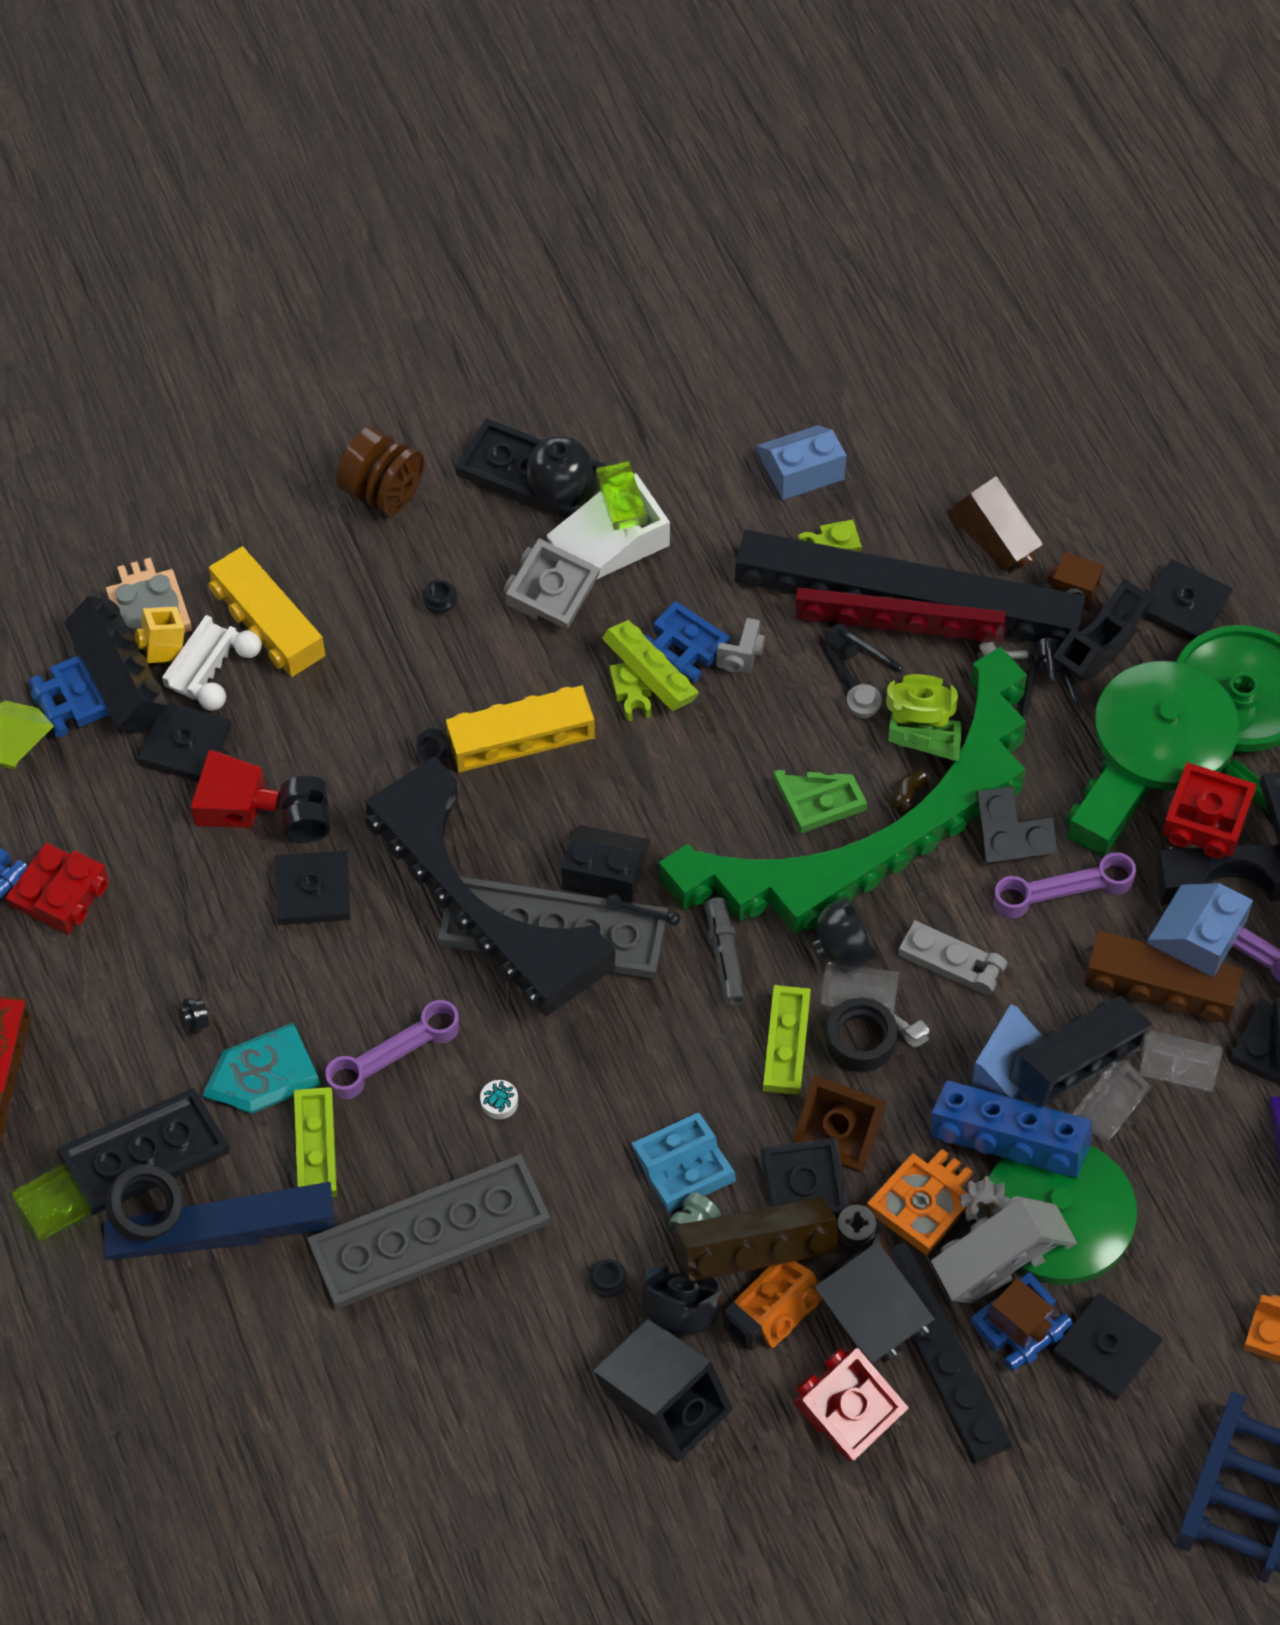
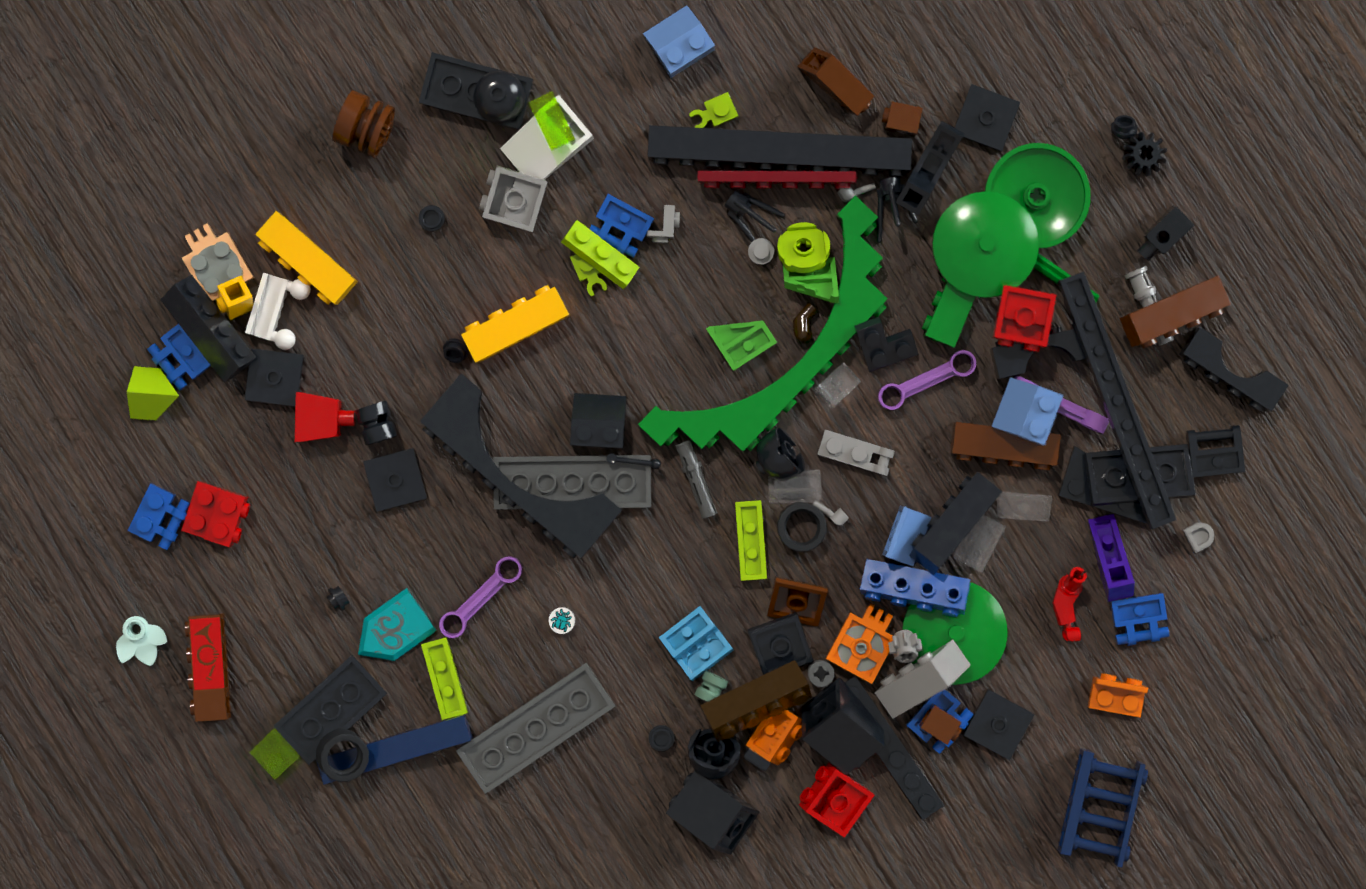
camera: 10 degrees left, 30 degrees up
(936, 871) = (837, 385): none -> clear slope
(1226, 1187) = (1066, 594): none -> red arm

